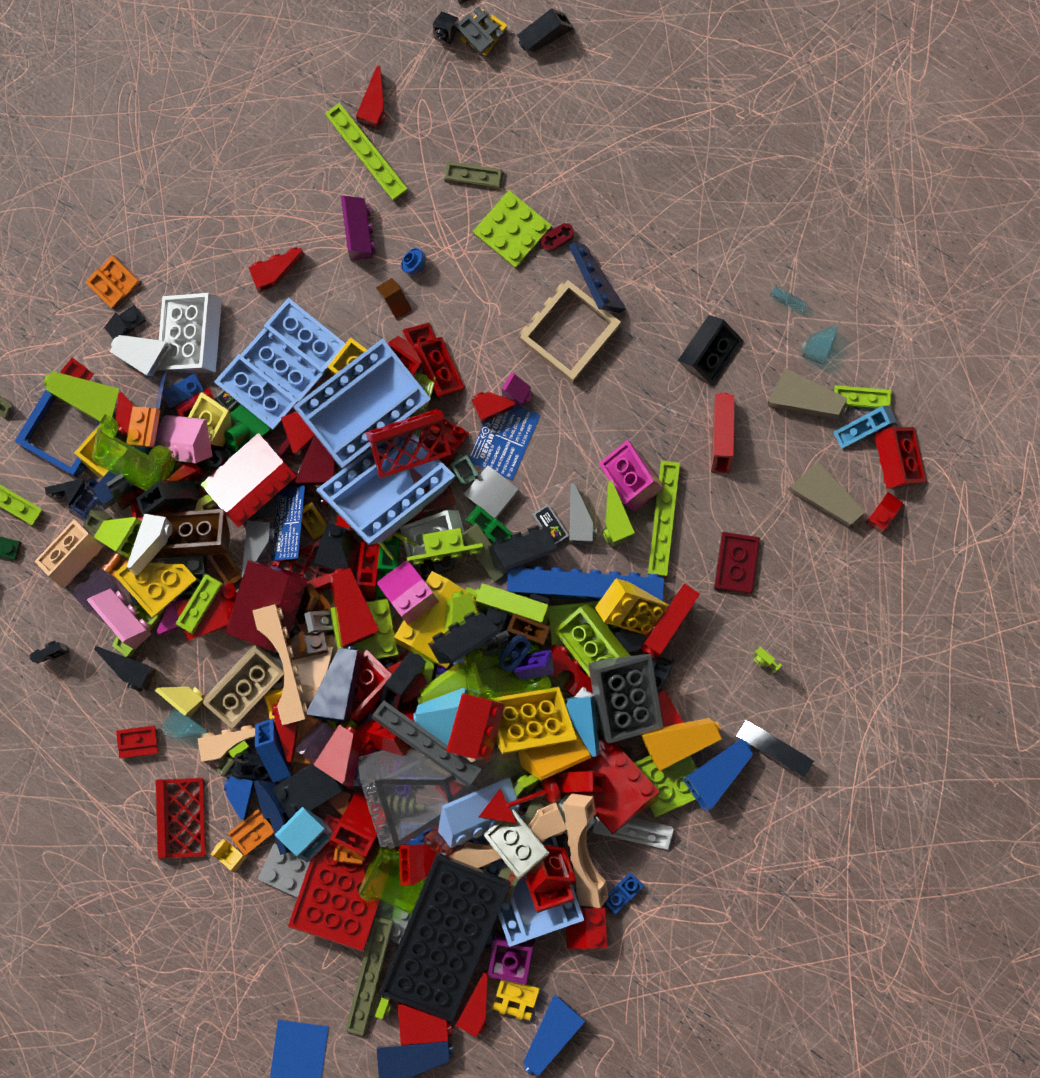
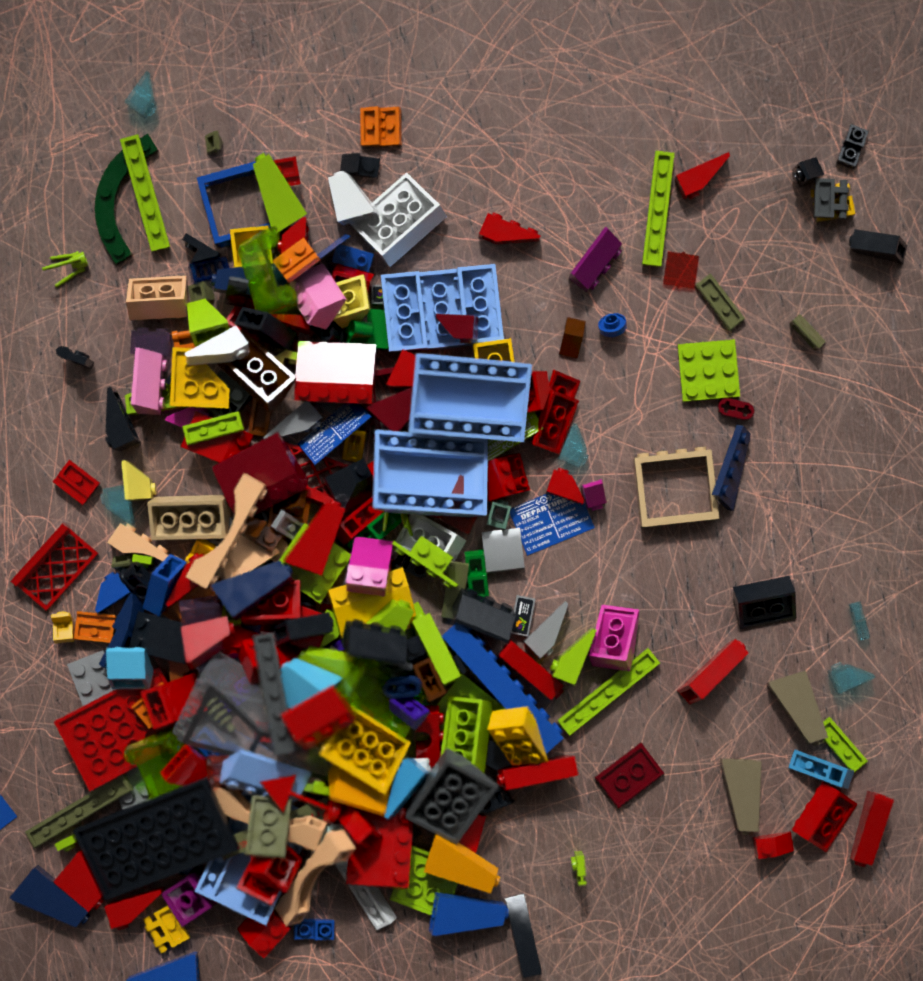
camera: 40 degrees right, 5 degrees up
(307, 362) = (460, 326): none -> dark red slope
(404, 427) = (486, 448): red fence -> none
(424, 179) = (680, 270): none -> clear red piece
(471, 372) = (574, 448): none -> clear light blue slope
(554, 137) = (807, 332): none -> olive slope
(594, 555) = (531, 670): none -> red slope
(939, 432) = (871, 828): none -> red slope

